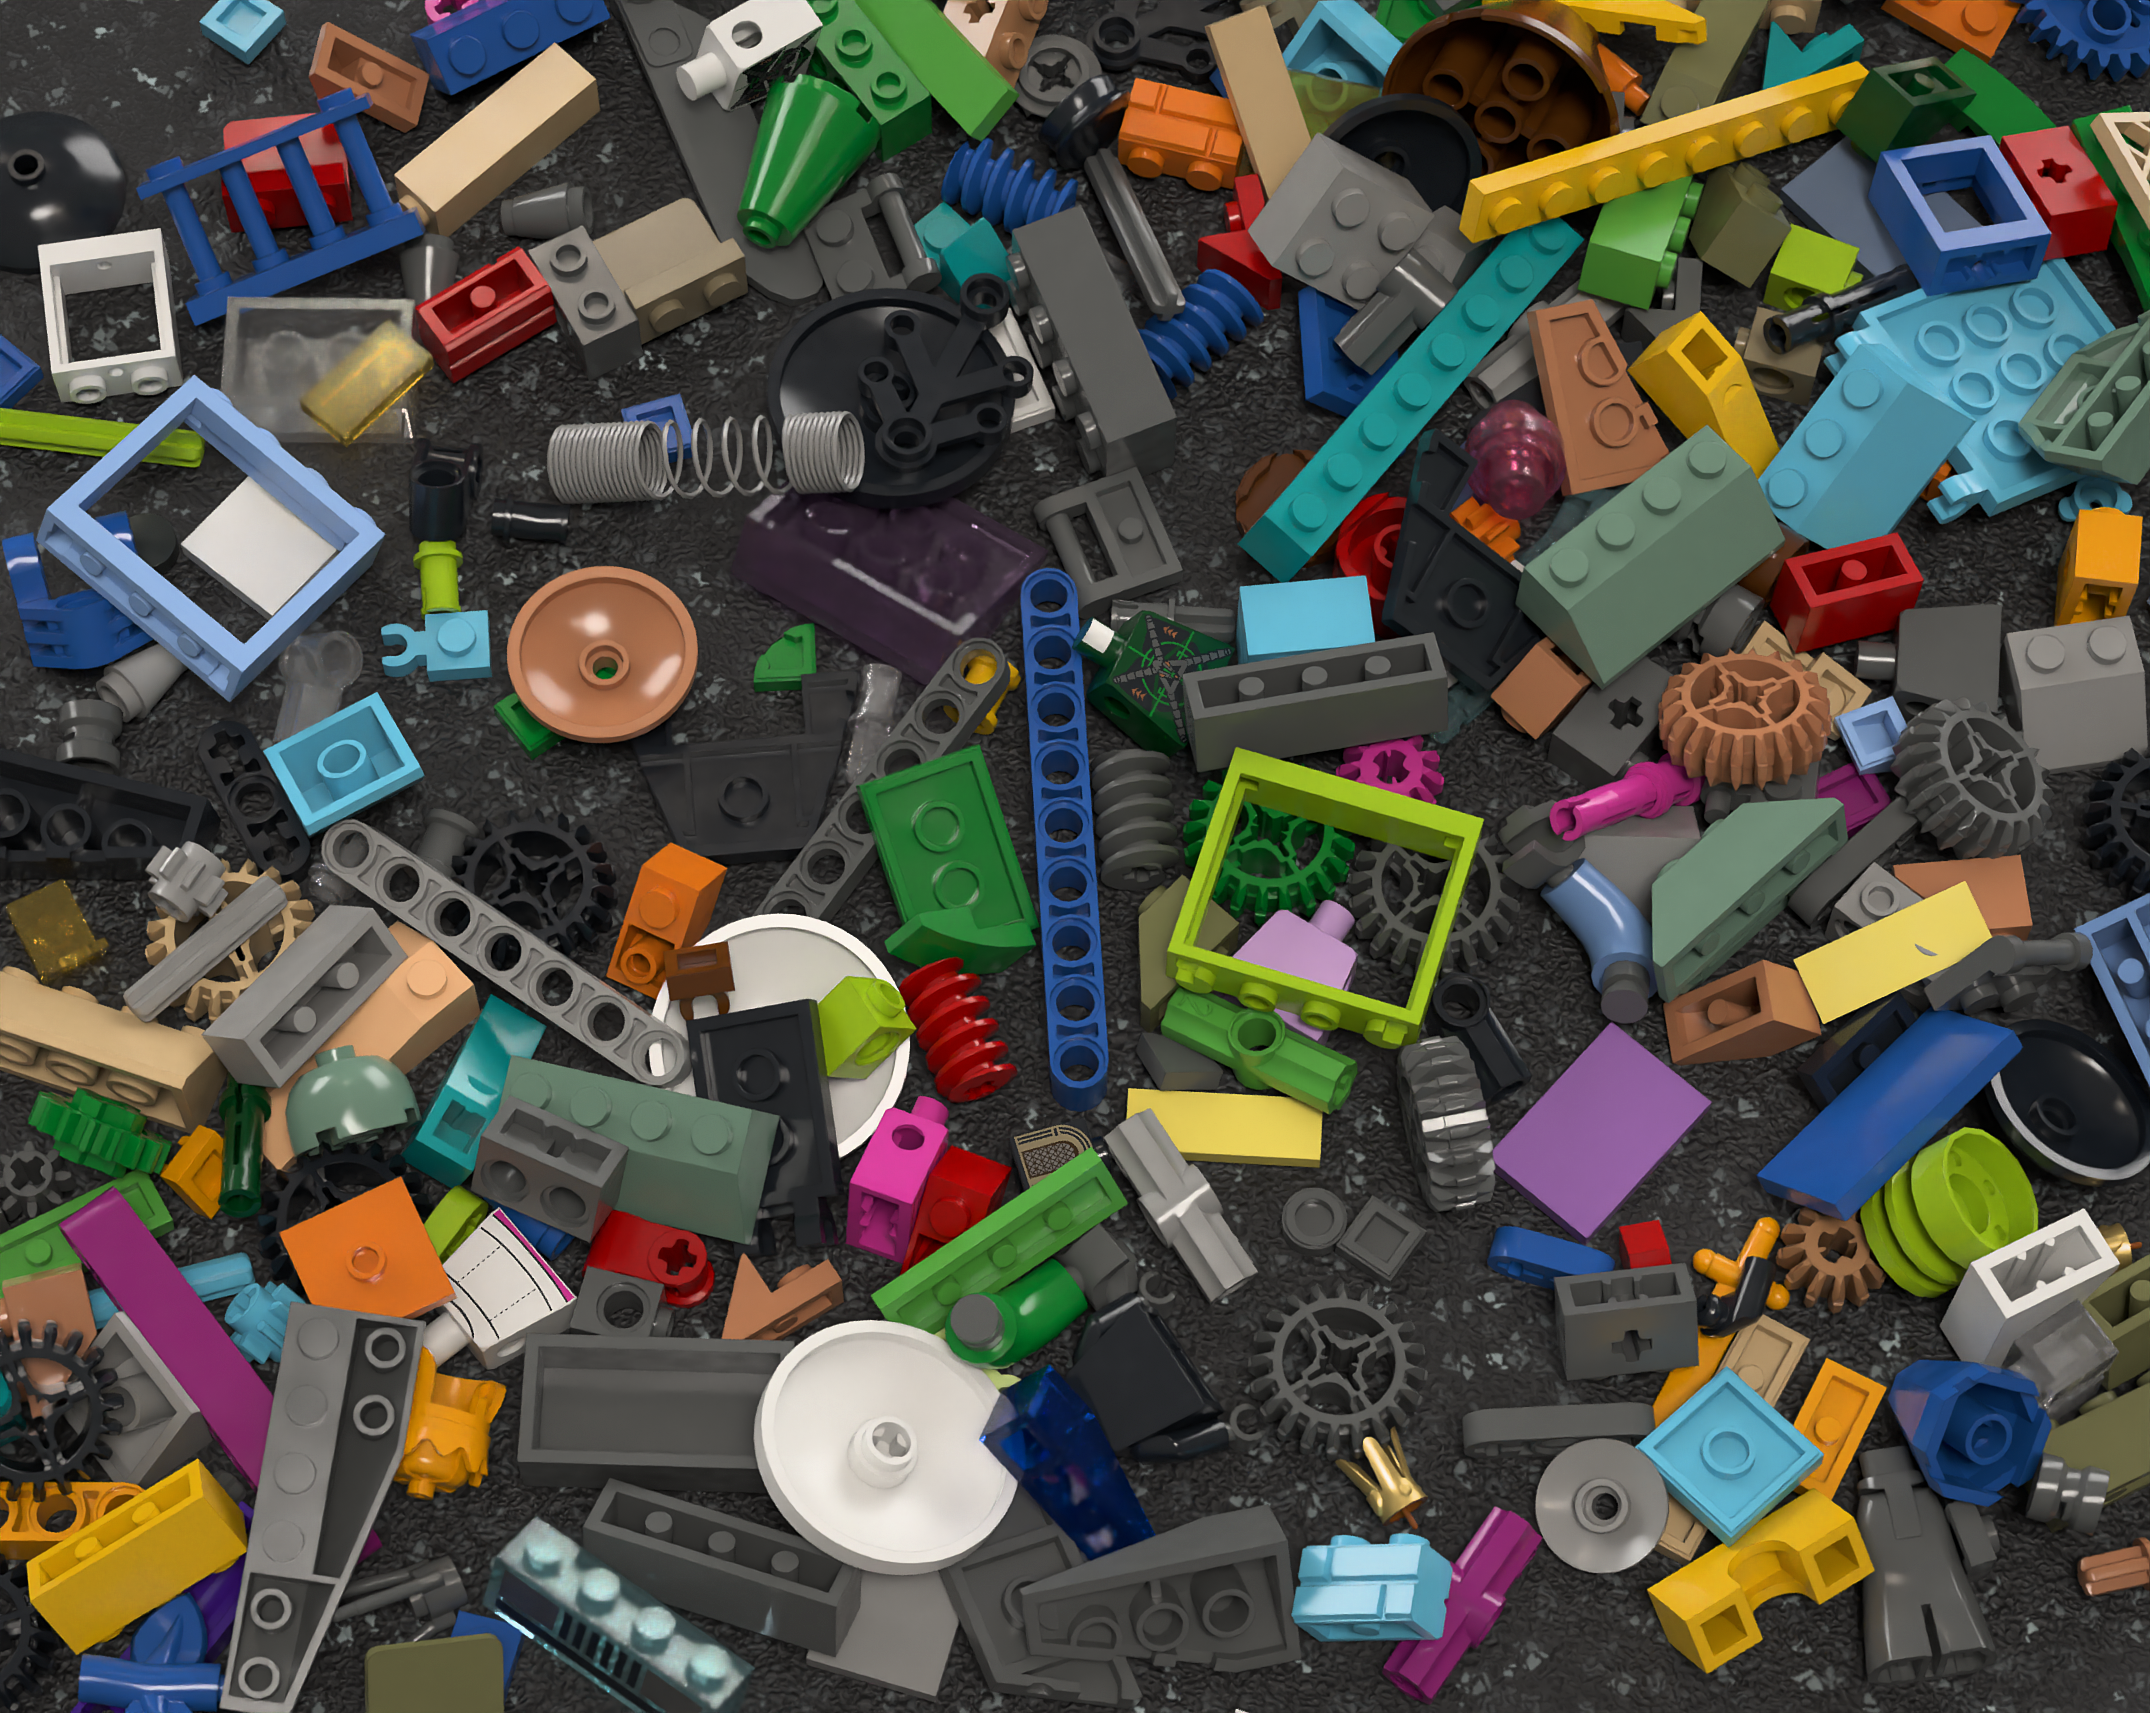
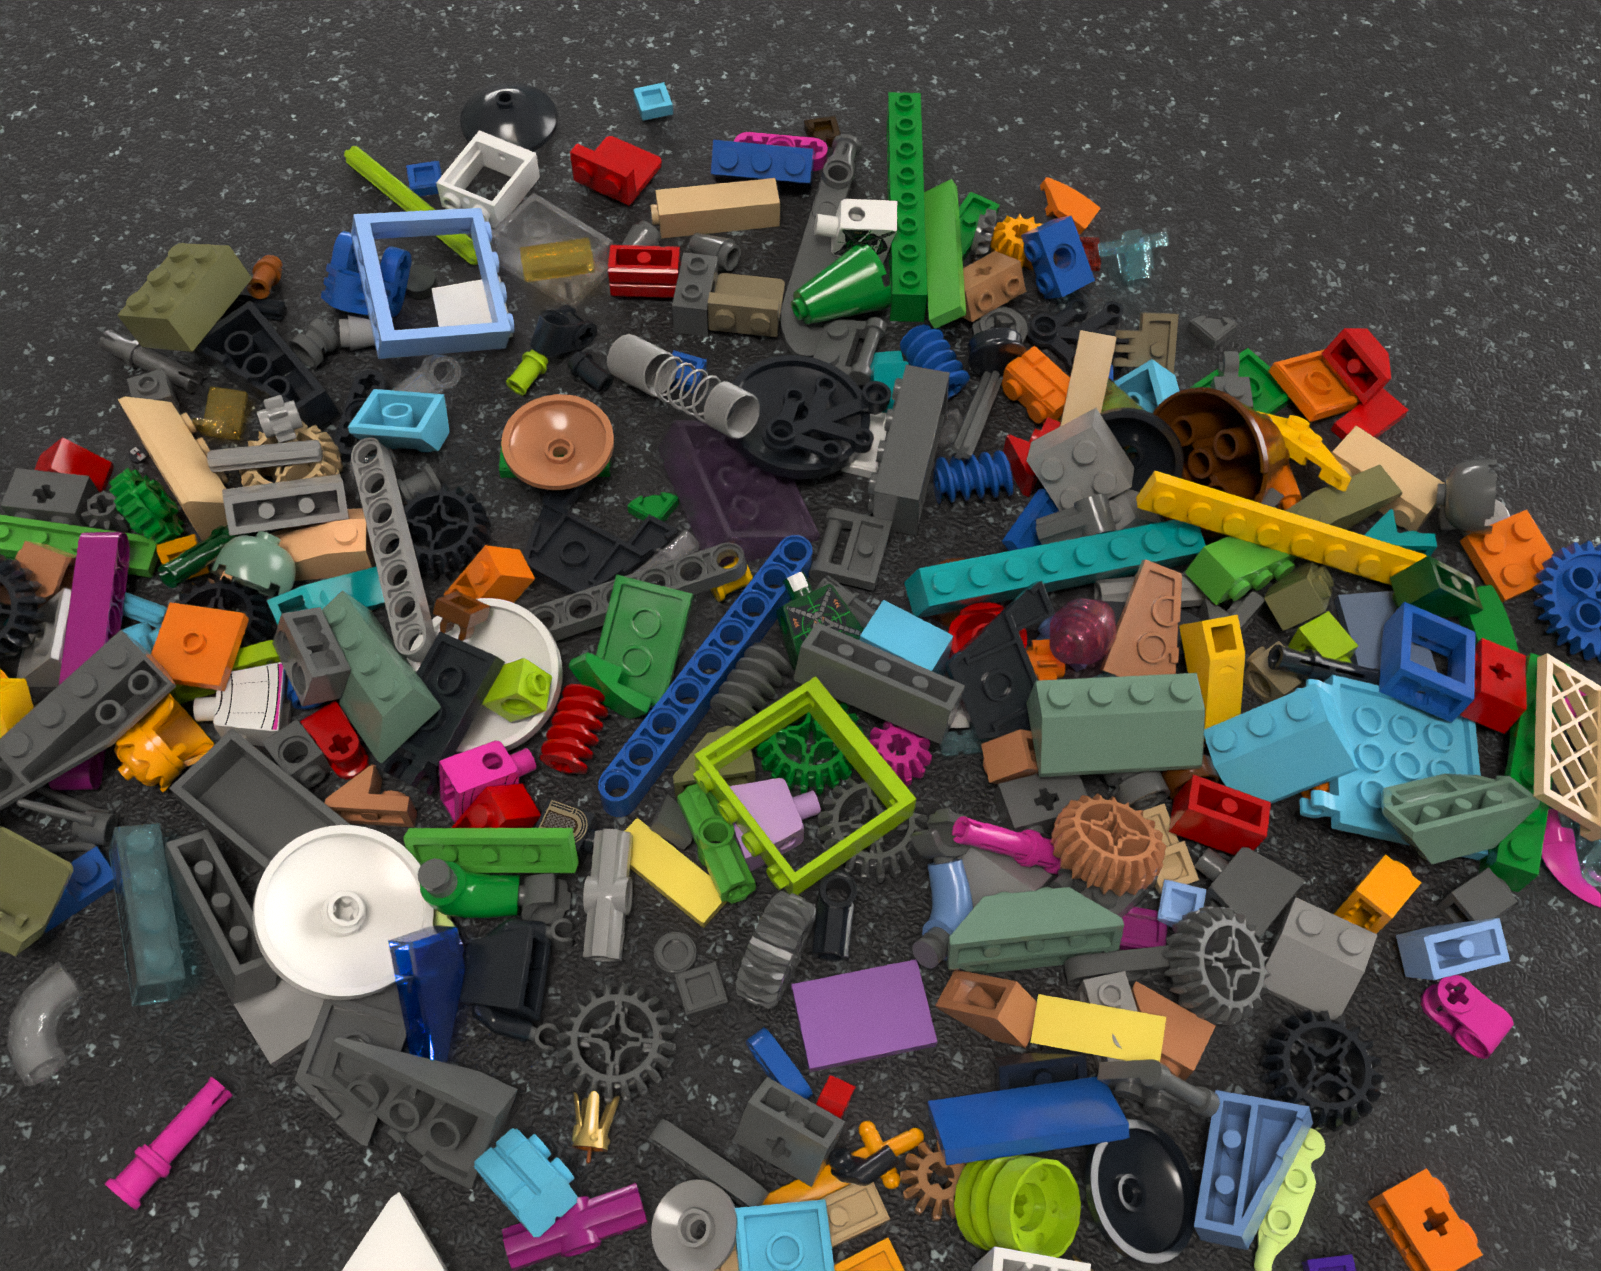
camera: 35 degrees right, 5 degrees down
(273, 267) = (601, 202): blue fence -> none
(349, 61) = (678, 143): nougat slope -> none
(451, 647) = (500, 402): medium azure plate -> none
(2095, 490) = (1408, 856): medium azure plate -> none

